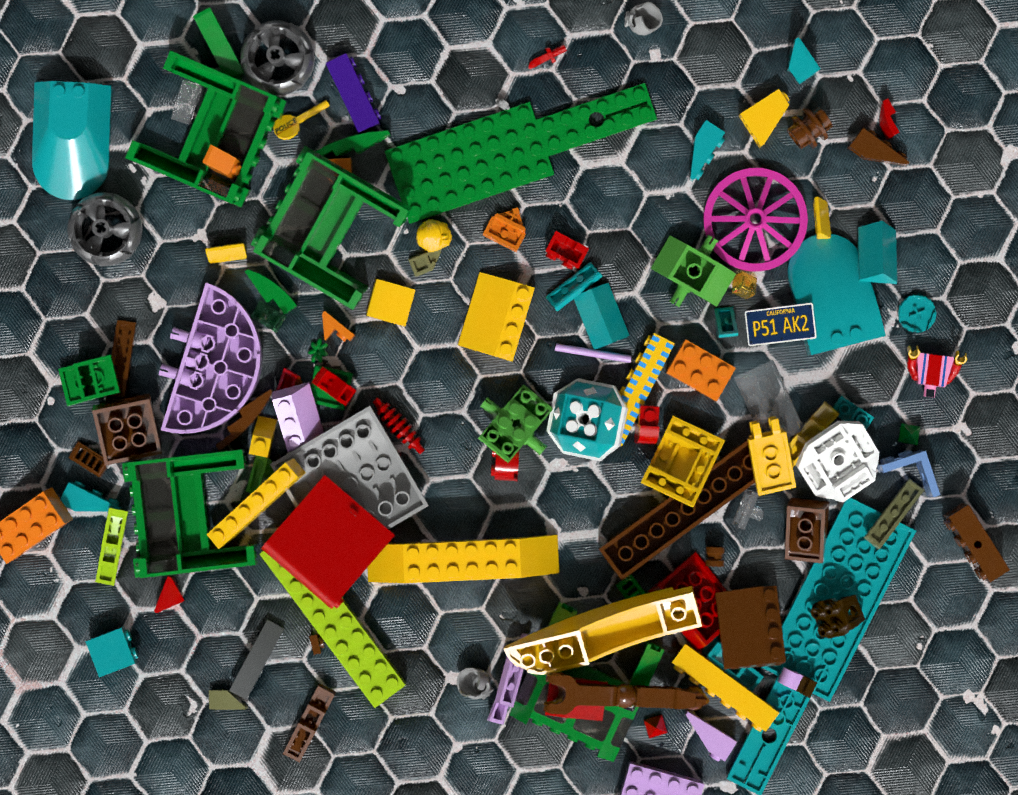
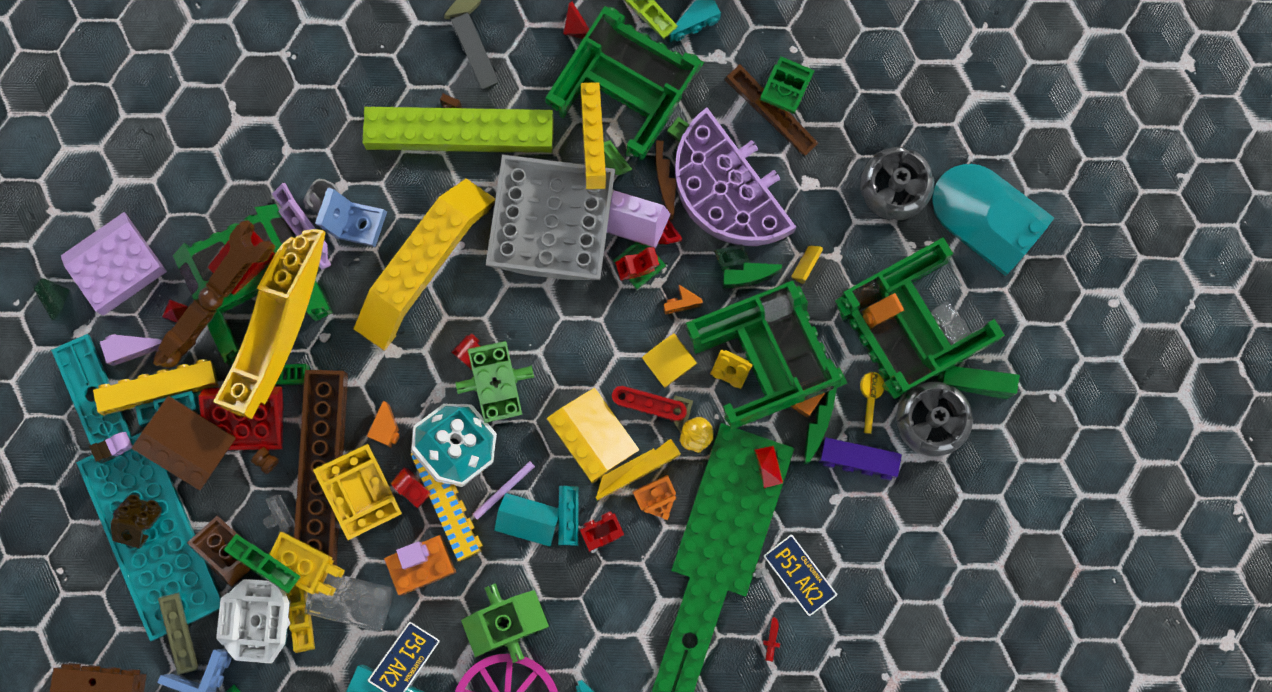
camera: 130 degrees right, 10 degrees down
(102, 468) = (710, 42): reddish brown slope -> none
(127, 429) = (727, 84): reddish brown slope -> none
(194, 441) = (678, 128): none -> bright green plate
(263, 437) = (640, 182): yellow slope -> none
(309, 722) = (395, 54): reddish brown slope -> none
(318, 350) = (675, 276): green plant -> none
(327, 543) = (518, 165): red door -> none
(360, 247) = (723, 371): none -> yellow piece
(393, 420) = (544, 294): red piece -> none
(415, 159) = (768, 466): none -> red slope
(437, 291) = (649, 403): none -> red plate
(478, 651) = (343, 219): none -> medium blue bracket
(480, 72) = (800, 575): none -> dark blue sticker
(496, 261) = (637, 468): none -> yellow wedge
(616, 484) = (384, 426): none -> orange slope
(697, 378) = (413, 555): none -> lavender brick
(725, 322) = (442, 616): teal slope -> none
(744, 285) = (460, 656): clear yellow slope -> none
(793, 488) = (262, 563): none -> green slope
(850, 412) = (286, 663): teal slope -> none

